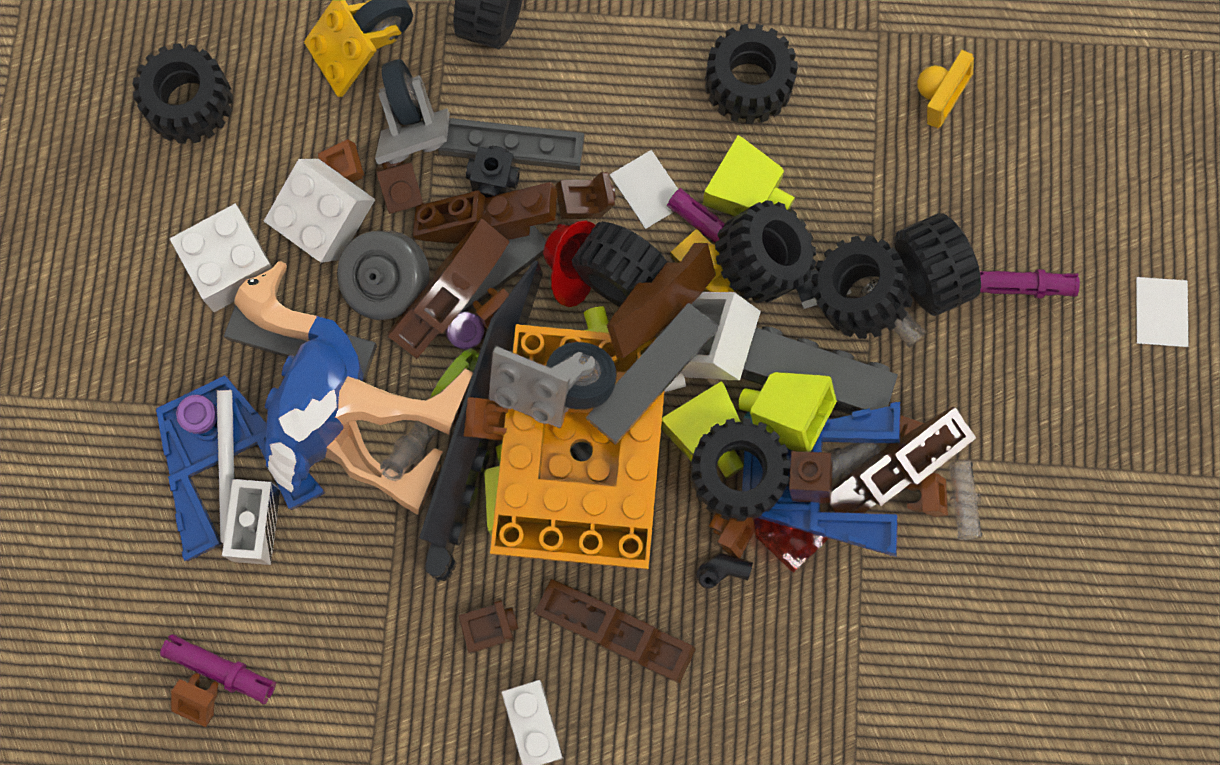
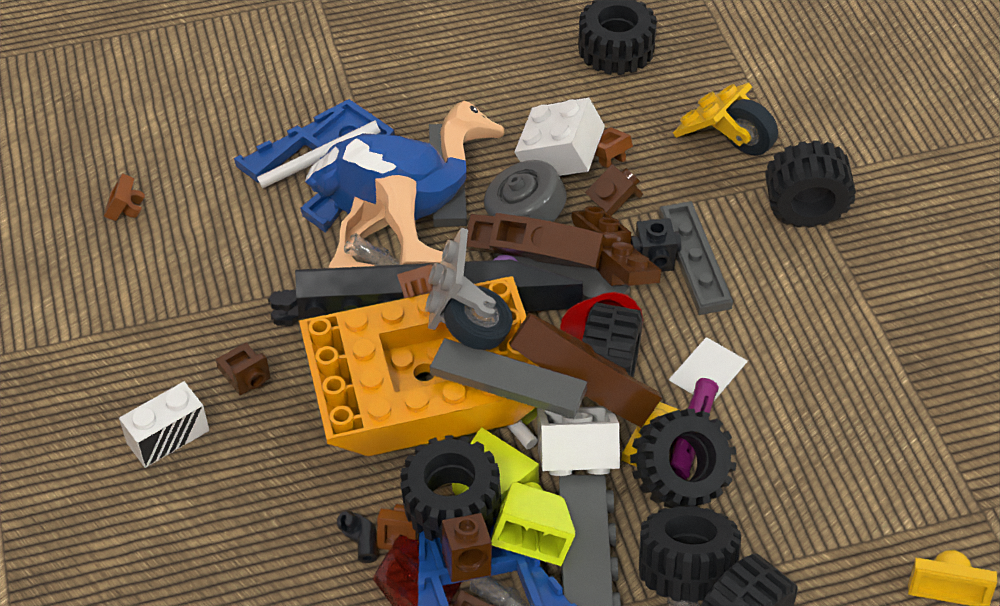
camera: 70 degrees right, 25 degrees down
(196, 414) = (352, 119): medium lavender tile -> none
(221, 255) = (498, 95): white brick -> none
(231, 675) = (149, 215): magenta pin -> none
(251, 522) = (276, 182): white brick -> none
(407, 102) = (683, 169): light grey plate -> none
(585, 197) = (669, 317): reddish brown bracket -> none
(615, 631) = (271, 466): reddish brown slope -> none
(745, 180) = (756, 433): neon yellow torso -> none
(754, 48) = (860, 426): black tyre -> none

